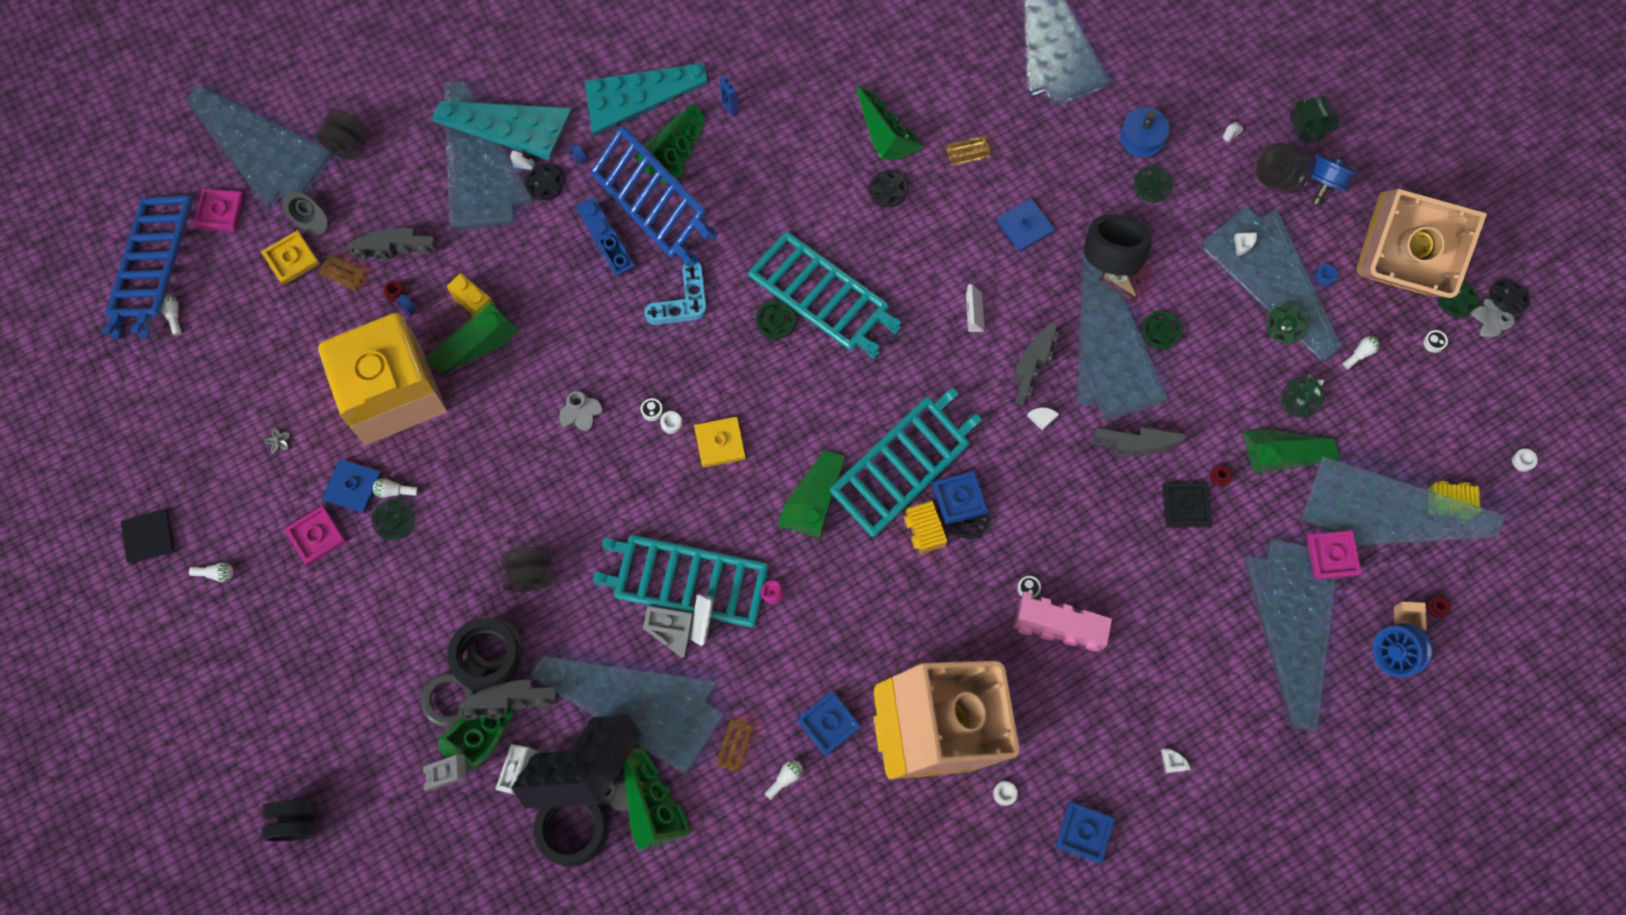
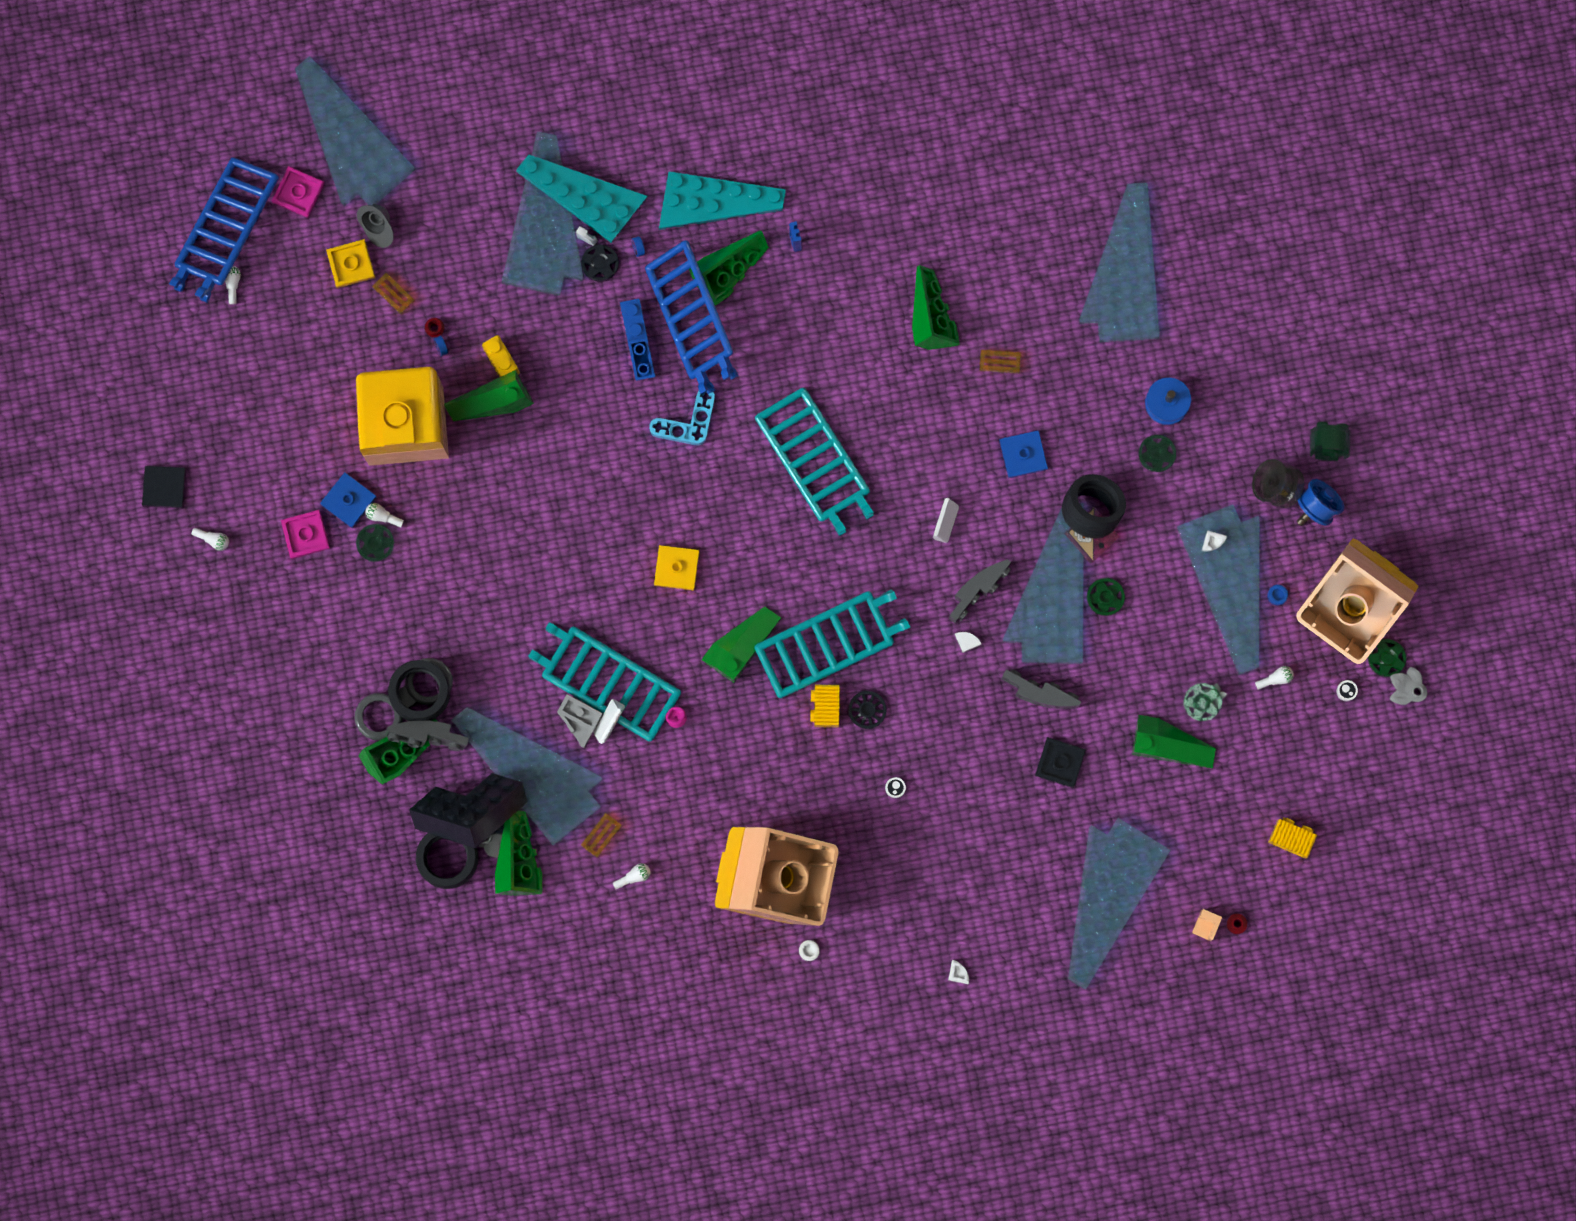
camera: 20 degrees right, 10 degrees up
(277, 441) = (295, 436): light grey plant -> none
(289, 820) = (224, 773): black wheel -> none
(342, 134) = (430, 158): clear smoke wheel -> none
(387, 242) = (437, 279): dark grey slope -> none
(444, 772) = (359, 777): light grey plate -> none
(514, 764) = (416, 791): white slope -> none
(527, 569) = (476, 629): clear smoke wheel -> none
(579, 414) = (564, 501): light grey plate -> none
(651, 409) = (627, 517): white tile -> none
(671, 422) = (640, 535): white tile -> none
(775, 320) = (764, 470): dark green wheel -> none
(828, 723) = (684, 844): blue plate -> none
(888, 189) = (911, 375): black wheel -> none
(959, 498) = (864, 690): blue plate -> none
(1061, 623) = (909, 828): bright pink wedge -> none
(1085, 832) = (861, 1003): blue plate -> none
(1218, 481) = (1094, 749): dark red plate -> none
(1232, 131) = (1253, 426): white tile -> none
(1287, 323) = (1218, 630): dark green wheel -> none
(1333, 555) = (1164, 850): dark pink tile -> none
(1390, 510) = (1216, 823): clear light blue wing -> none
(1402, 650) = (1183, 949): blue wheel -> none
(1510, 295) = (1433, 672): black wheel -> none
(1524, 460) = (1374, 824): white tile -> none

